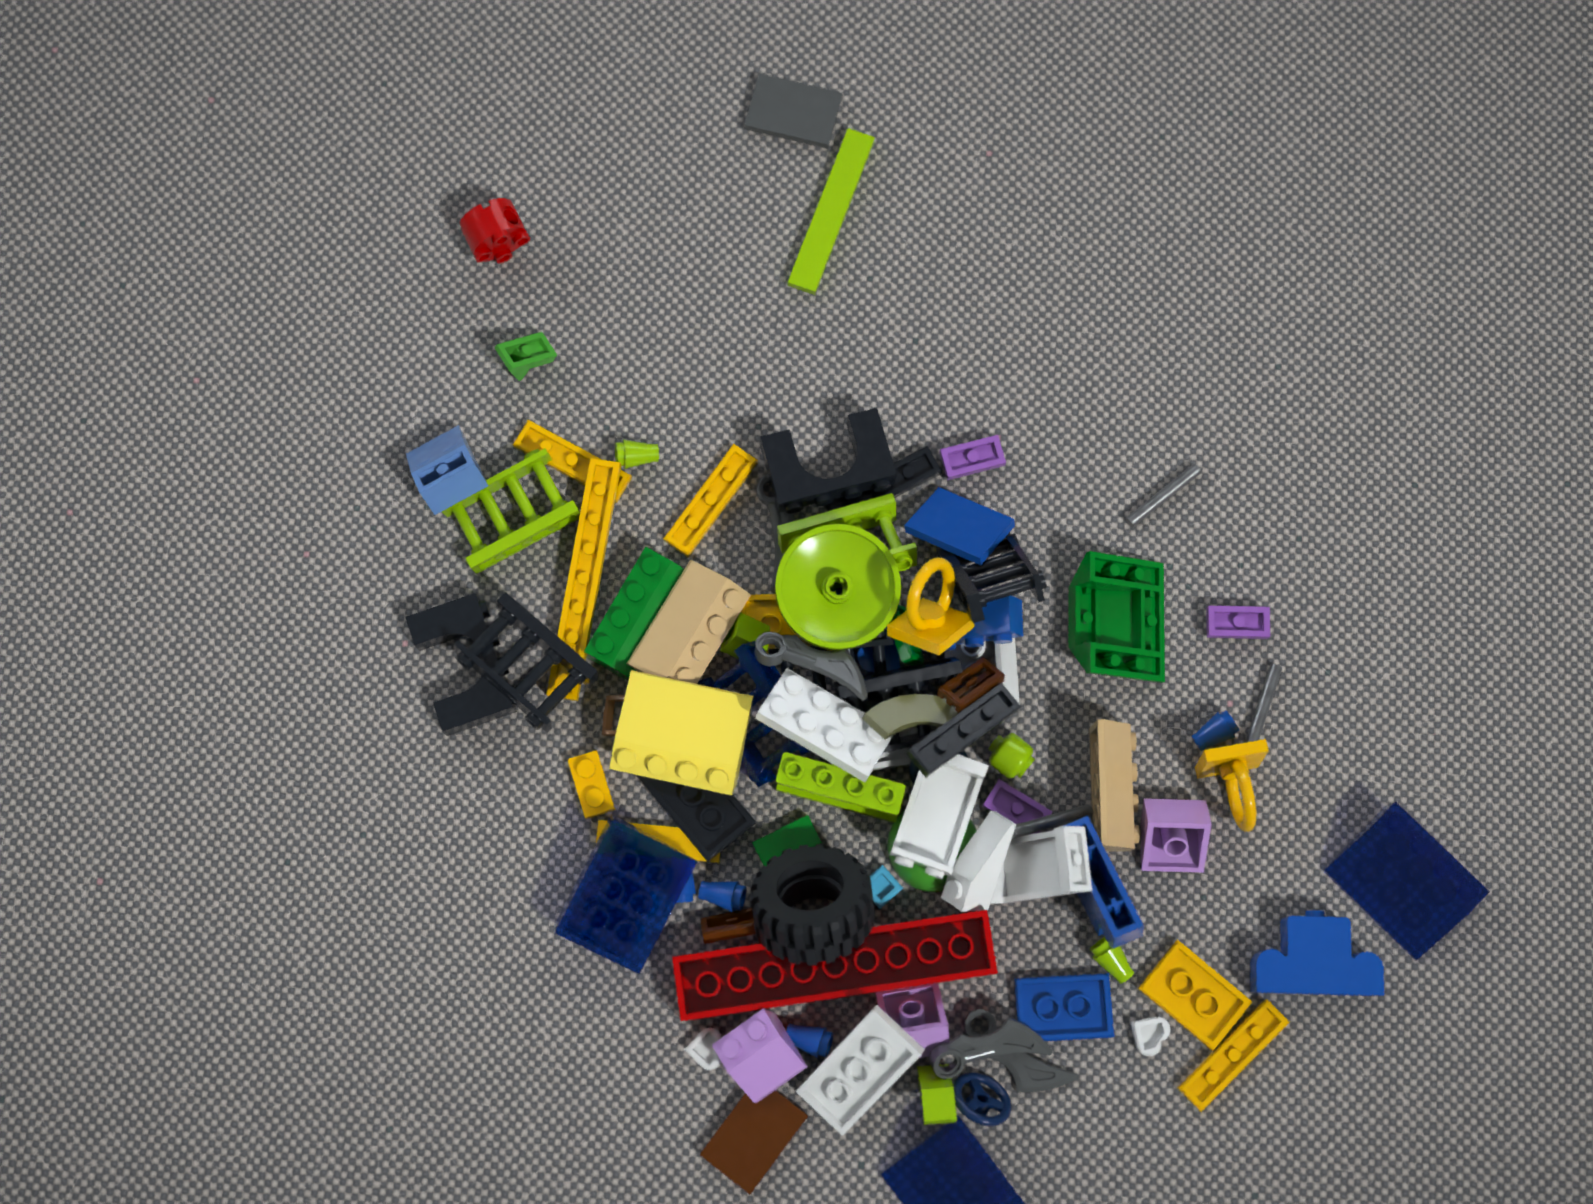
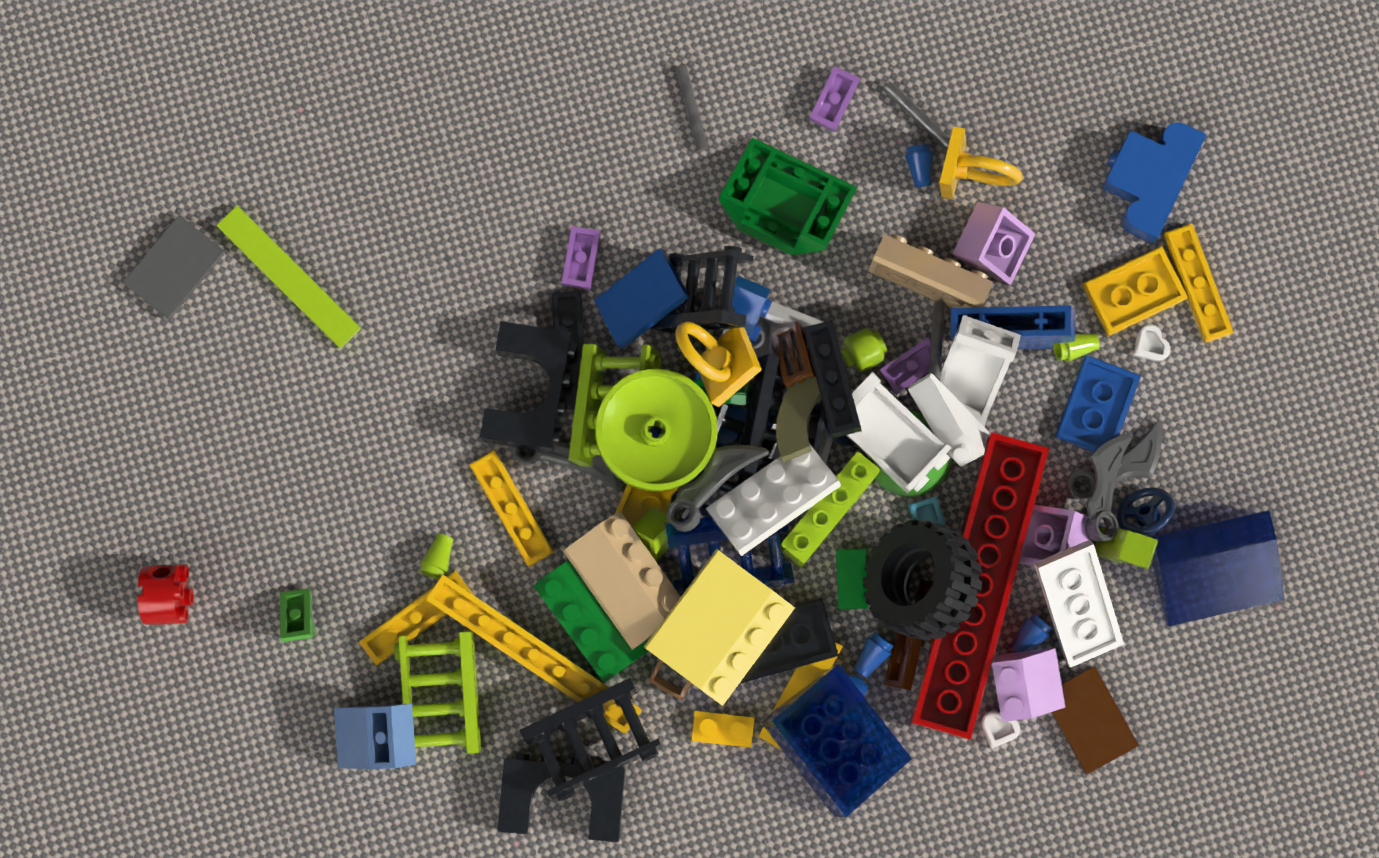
camera: 65 degrees left, 5 degrees up
(1406, 880) = (1117, 68): clear blue slope -> none

